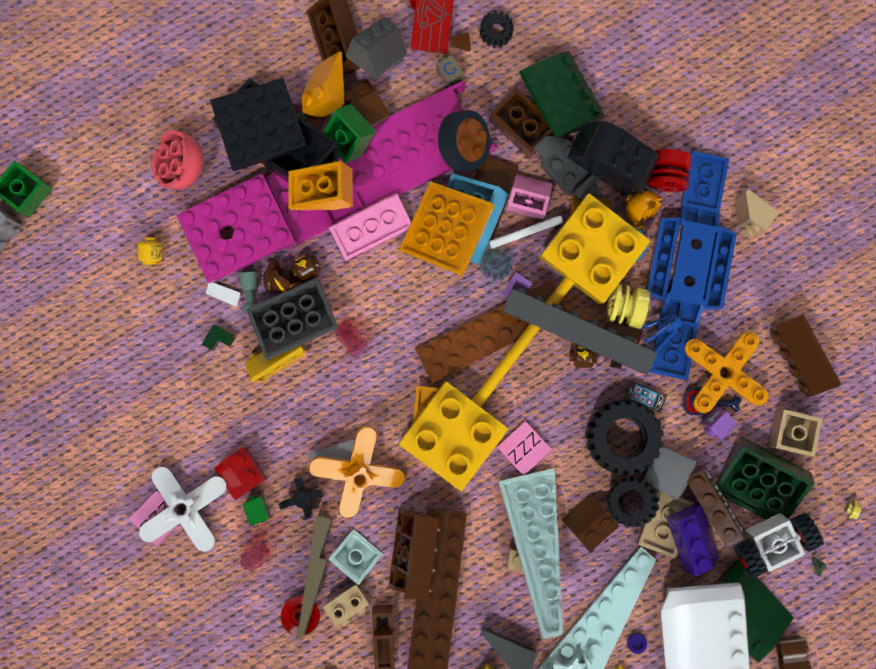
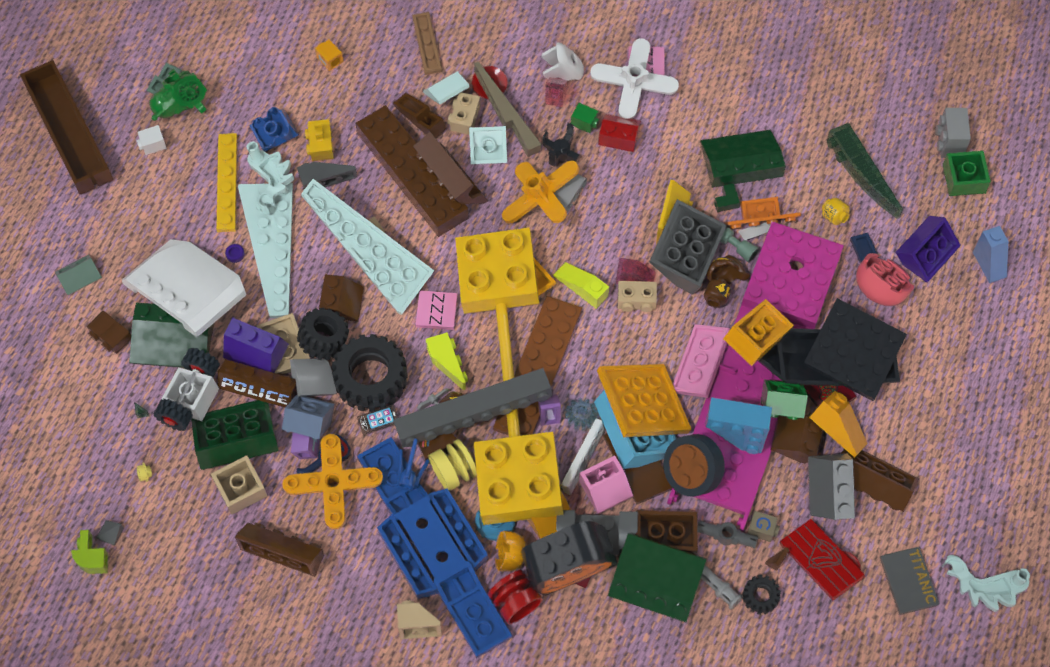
camera: 135 degrees right, 20 degrees down
(76, 109) = (992, 254): none -> medium blue slope
(91, 269) = (861, 168): none -> clear green slope
(114, 161) = (928, 247): none -> dark purple slope
(161, 204) = (862, 245): none -> dark blue tile
(169, 362) = (743, 158): none -> dark green slope
(205, 301) = (761, 210): none -> orange bracket
(228, 568) = (561, 60): none -> white piece
(340, 642) = (446, 88): none -> light aqua slope
(366, 319) = (637, 296): none -> tan brick
(396, 369) = (583, 284): none -> neon yellow slope
(405, 136) = (739, 423): none -> dark azure slope
(475, 80) = (736, 538): none -> dark grey pin
(518, 56) = (721, 588): none -> light grey pin
(555, 401) = (443, 357): none -> neon yellow slope
(591, 377) = (432, 399): none -> light grey piece
(702, 440) = (308, 416): none -> sand blue container

